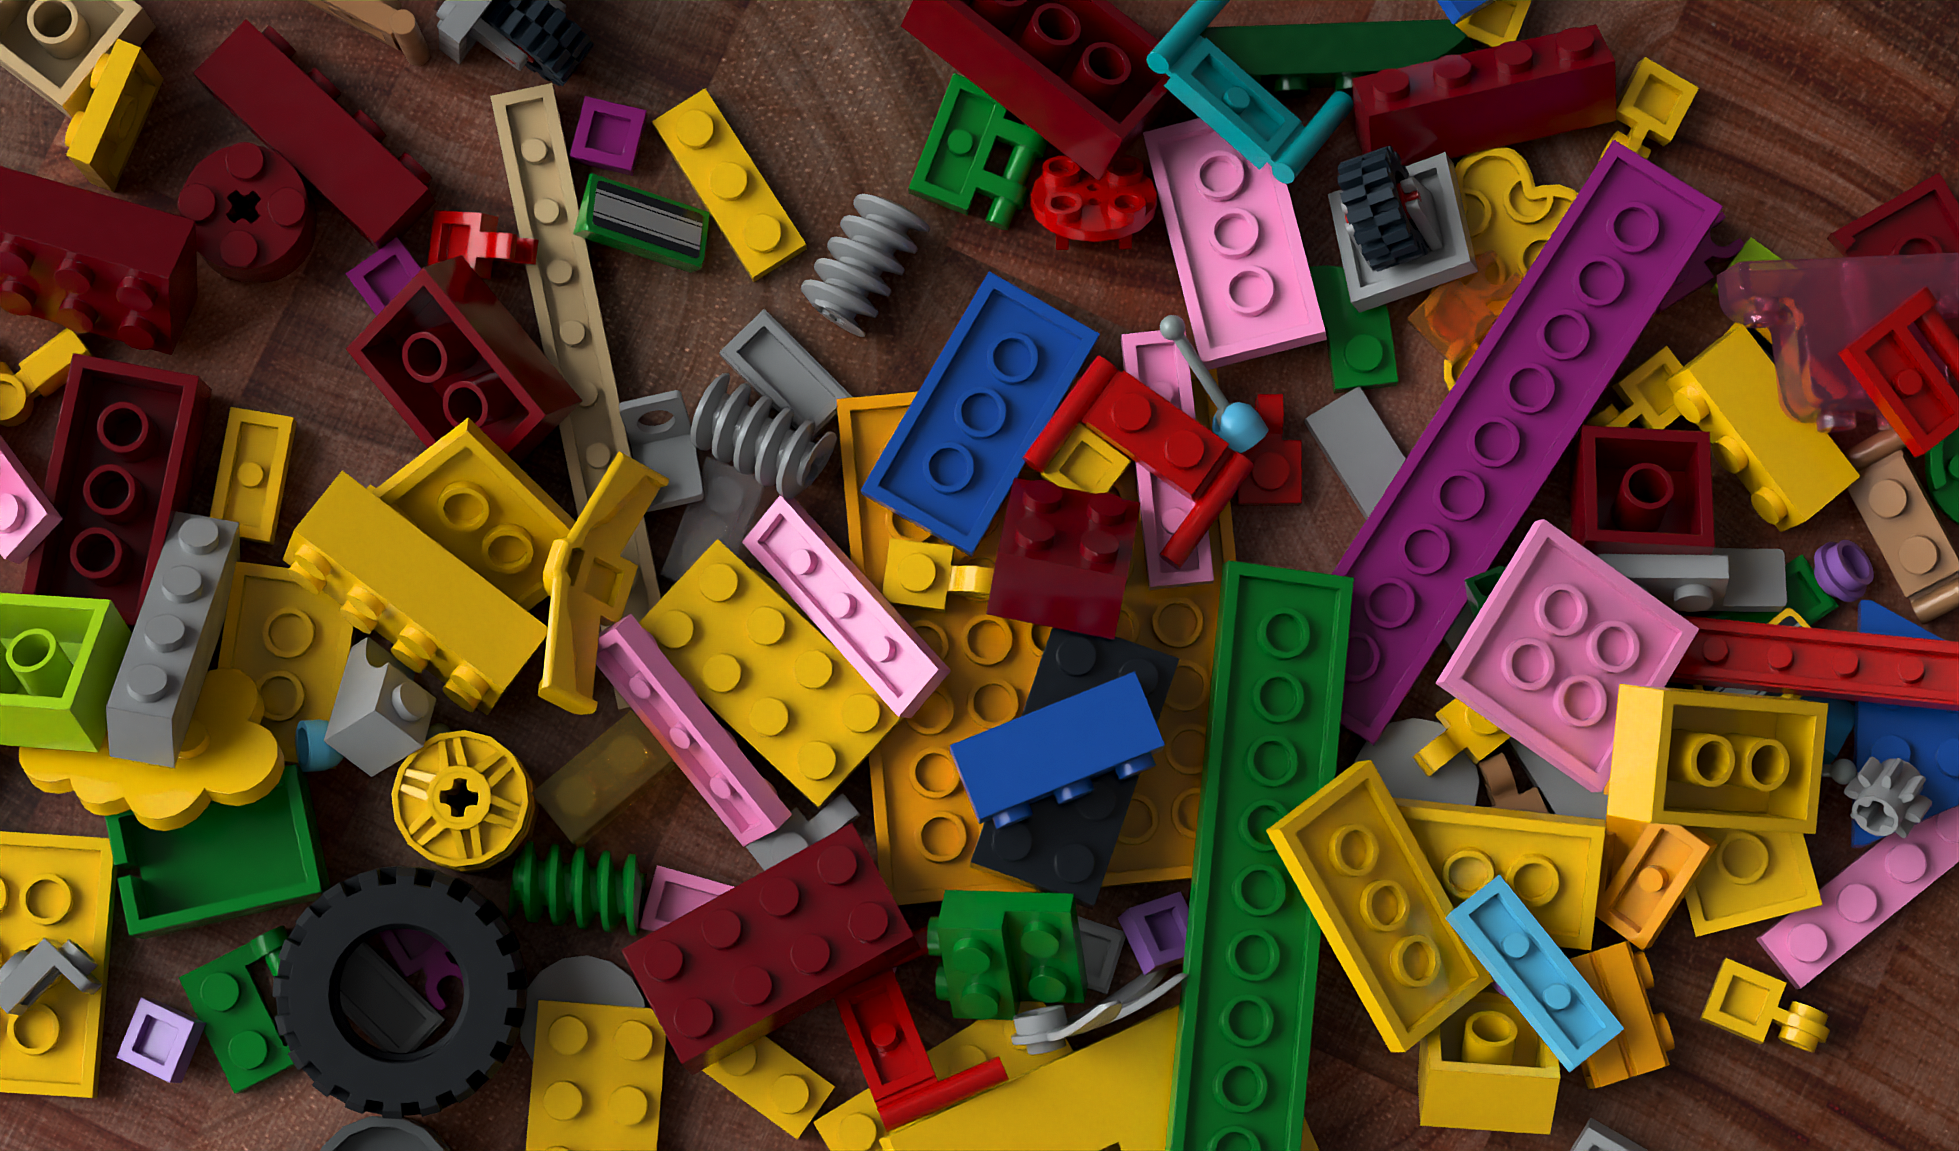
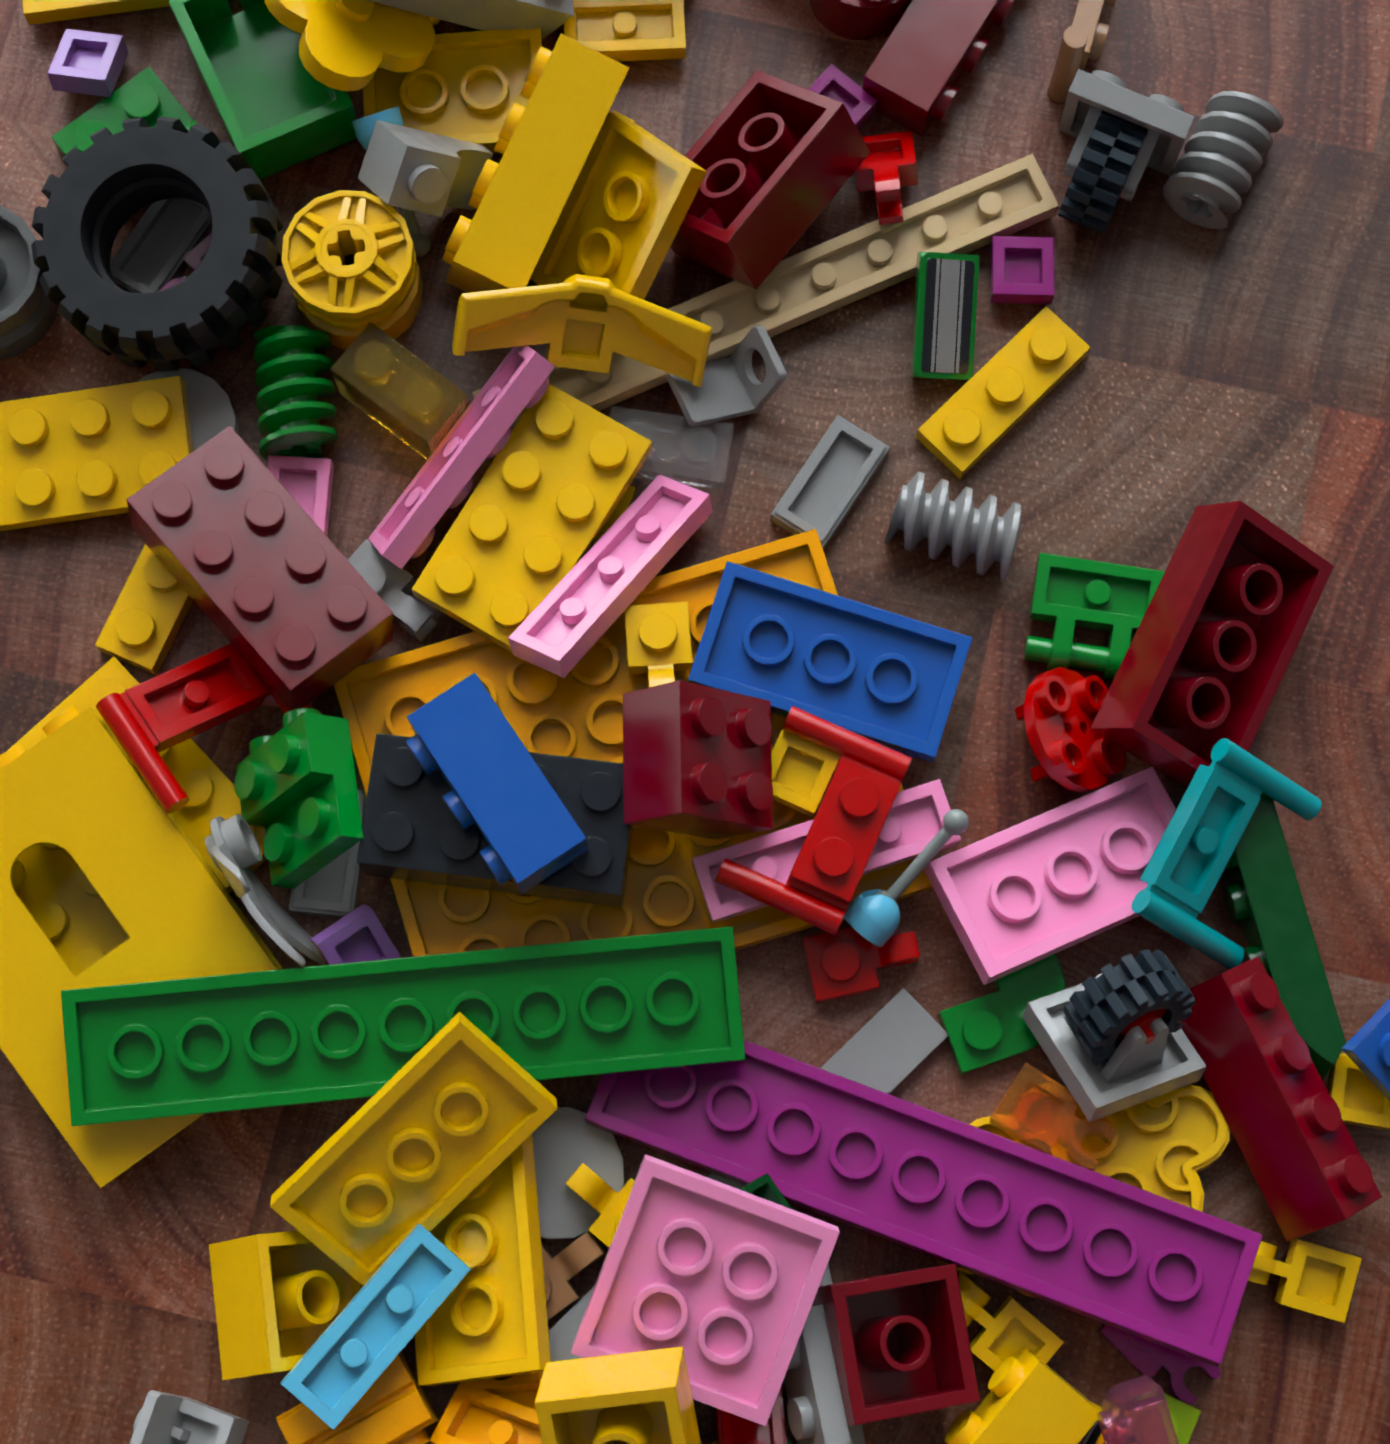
camera: 80 degrees right, 5 degrees down
(758, 441) = (761, 463): light grey piece -> none

